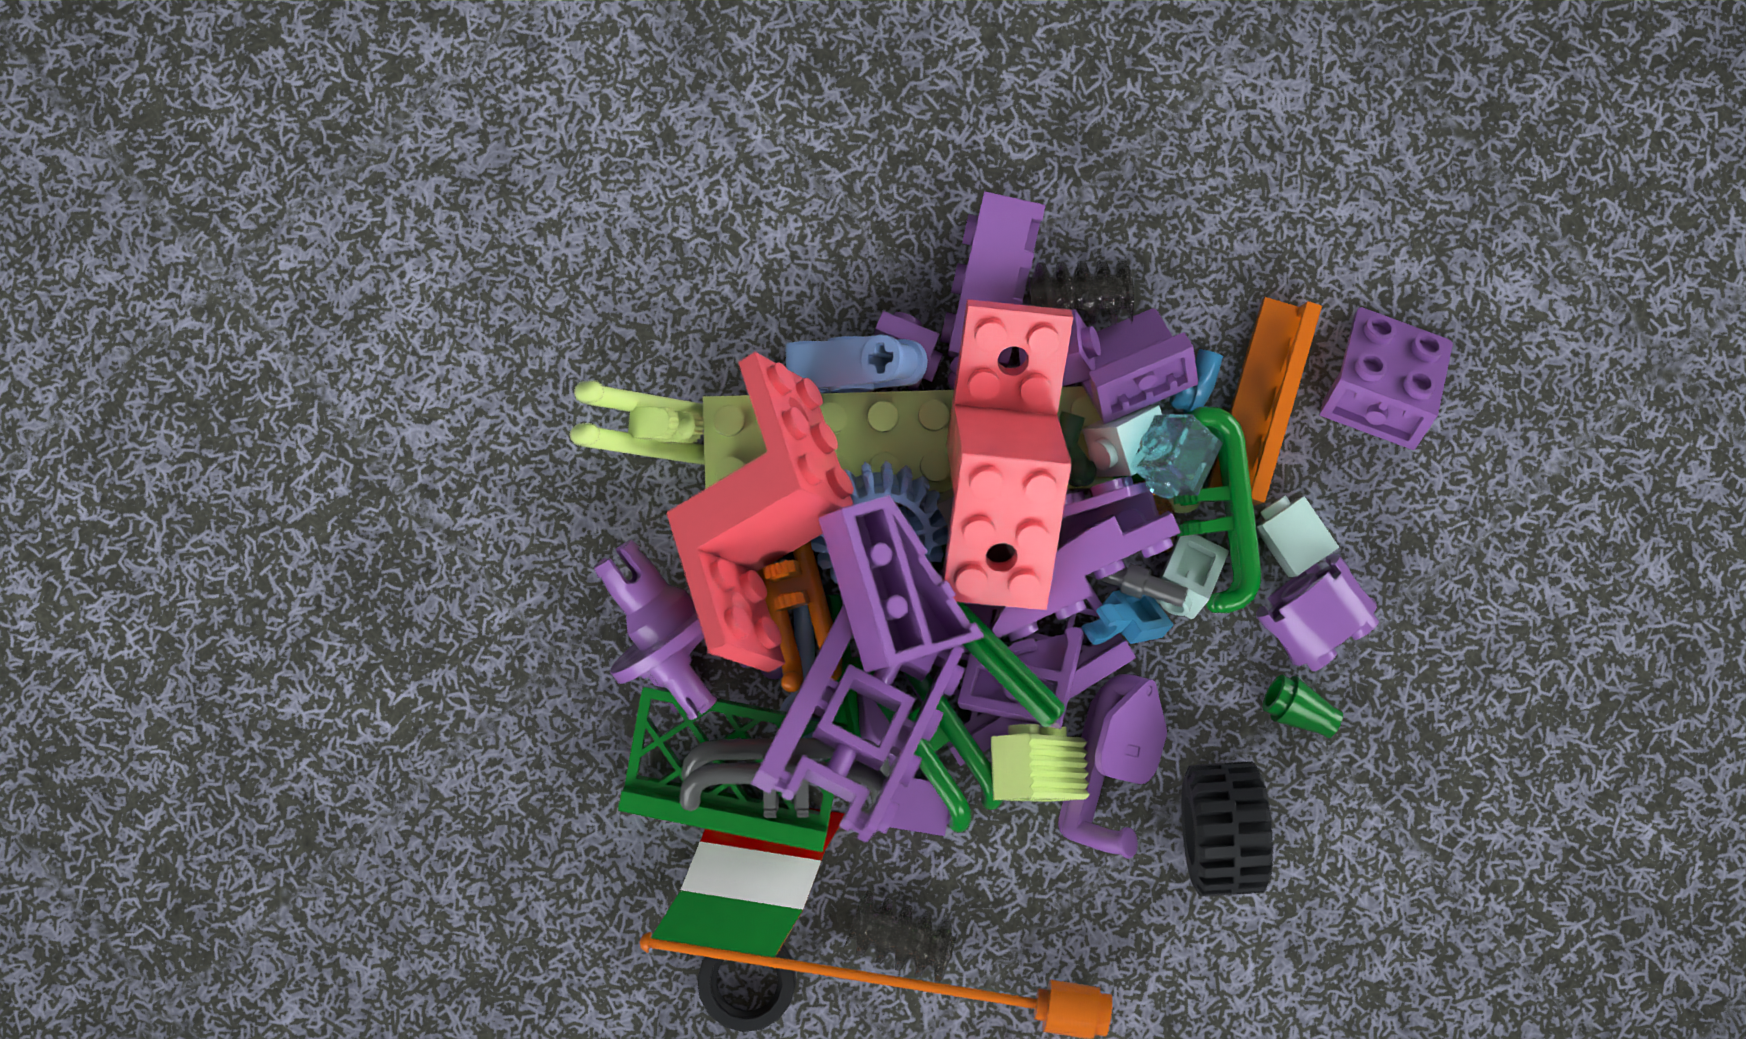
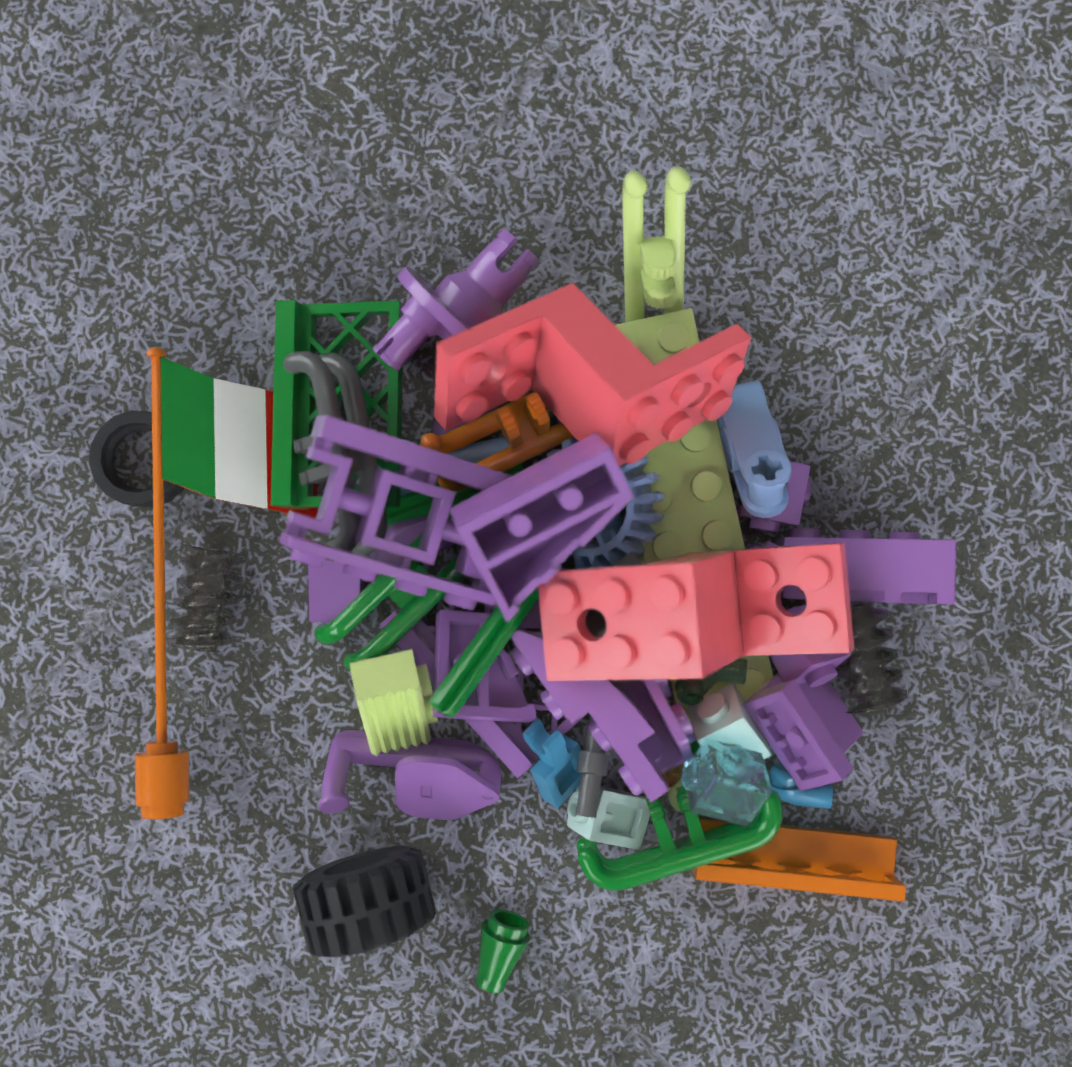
camera: 75 degrees right, 0 degrees up
(1295, 535) = (668, 914): light aqua brick -> none
(1319, 613) = (596, 953): medium lavender brick -> none
(1389, 379) = (838, 979): medium lavender bracket -> none

